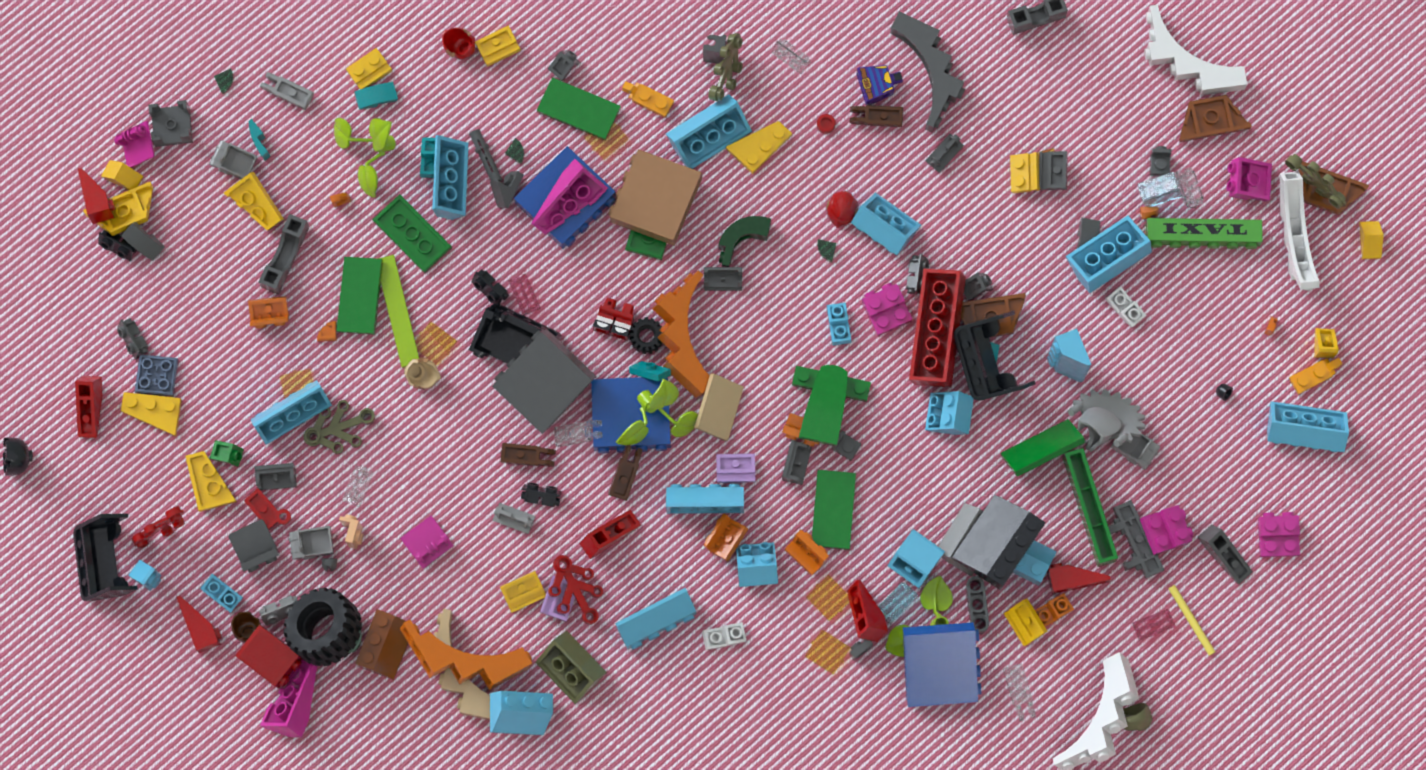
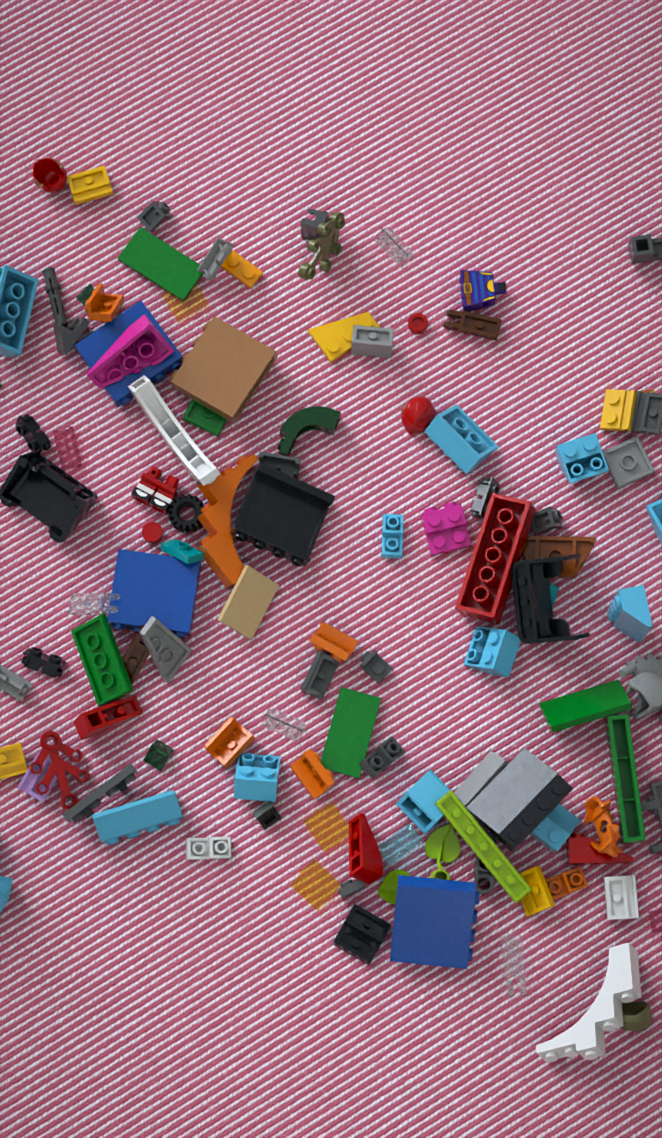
camera: 10 degrees right, 0 degrees up
(525, 455) = (35, 617): reddish brown hinge -> none
(533, 157) = (103, 306): none -> orange bracket
(543, 380) = (67, 541): dark grey brick -> none
(570, 667) = (38, 852): olive slope -> none
(595, 483) = (102, 660): none -> green tile
(618, 358) = (152, 532): none -> red tile
(621, 265) = (173, 433): none -> white arch
(625, 597) = (109, 788): none -> dark grey hinge
(628, 95) = (215, 258): none -> light grey hinge
(651, 462) = (164, 647): none -> light grey wing
(662, 560) = (158, 755): none -> clear green slope
(664, 396) = (187, 580): lime plant -> none
(704, 499) = (214, 698): medium azure slope -> none
(709, 132) = (293, 311): medium azure slope -> none
(734, 322) = (281, 515): none -> black panel
(735, 468) = (254, 670): lavender plate -> none
(763, 512) = (274, 721): none -> clear hinge
(772, 597) = (267, 815): none -> pearl dark grey plate
(787, 147) = (372, 341): none -> light grey panel
(826, 249) = (394, 455): clear green tile -> none
(827, 400) = (364, 615): green slope -> none
(866, 526) = (381, 757): none -> dark grey slope
(877, 688) = (361, 934): none -> black slope
(922, 40) = (537, 254): dark grey arch -> none
(945, 152) = (537, 375): dark grey hinge -> none
(973, 589) = (483, 846): none -> lime tile
(999, 223) = (581, 458): none -> medium azure slope
(1041, 219) = (628, 462): none -> light grey tile
(1070, 542) = (598, 813): none -> orange piece
(1105, 614) = (621, 897): none -> white plate

